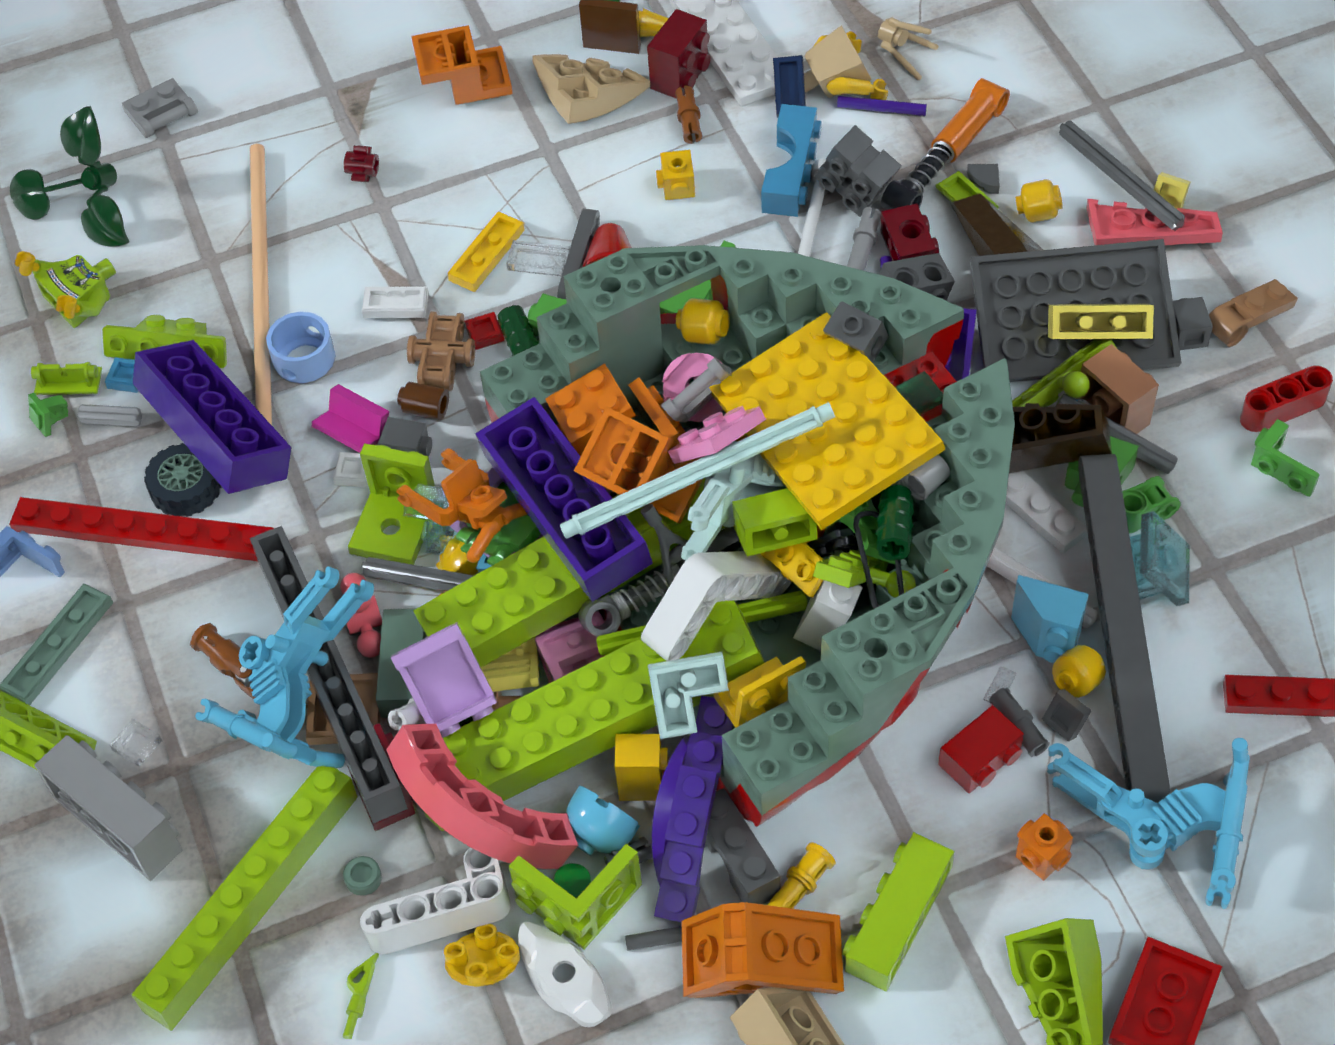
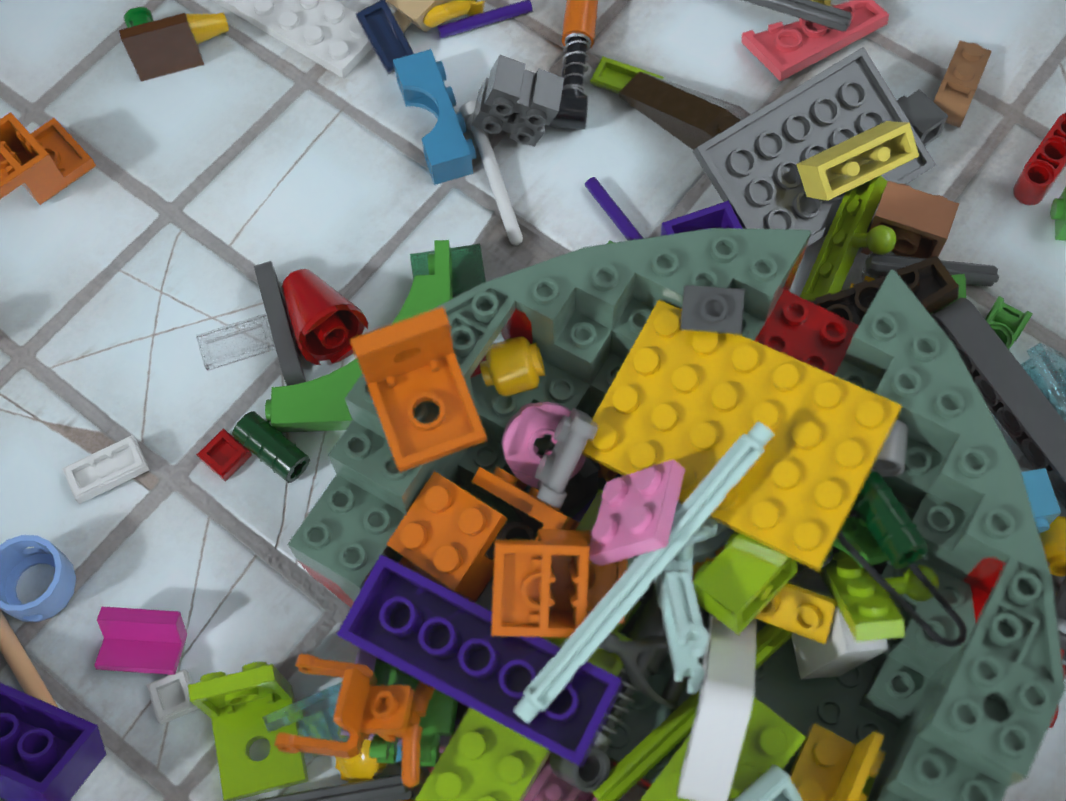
camera: 30 degrees left, 10 degrees up
(406, 436) = (216, 636): dark grey brick -> none
(423, 400) = (207, 574): reddish brown brick -> none
(441, 350) = (192, 505): medium nougat axle -> none
(486, 251) = (173, 362): yellow plate -> none
(588, 88) = (173, 125): tan brick -> none
(614, 264) = (417, 365): none -> orange bracket
(676, 181) = (328, 183): yellow brick -> none
(678, 53) = (254, 49): dark red brick -> none
(688, 114) = (299, 110): dark orange pin -> none
(864, 239) = (558, 169): light grey pin -> none
(907, 233) = (585, 145): dark red brick -> none
(921, 393) = (814, 346): clear green tile -> none
(922, 272) = (641, 196): dark grey brick -> none
(985, 175) = (630, 50): dark grey tile -> none
(1039, 200) = (701, 54): yellow head -> none

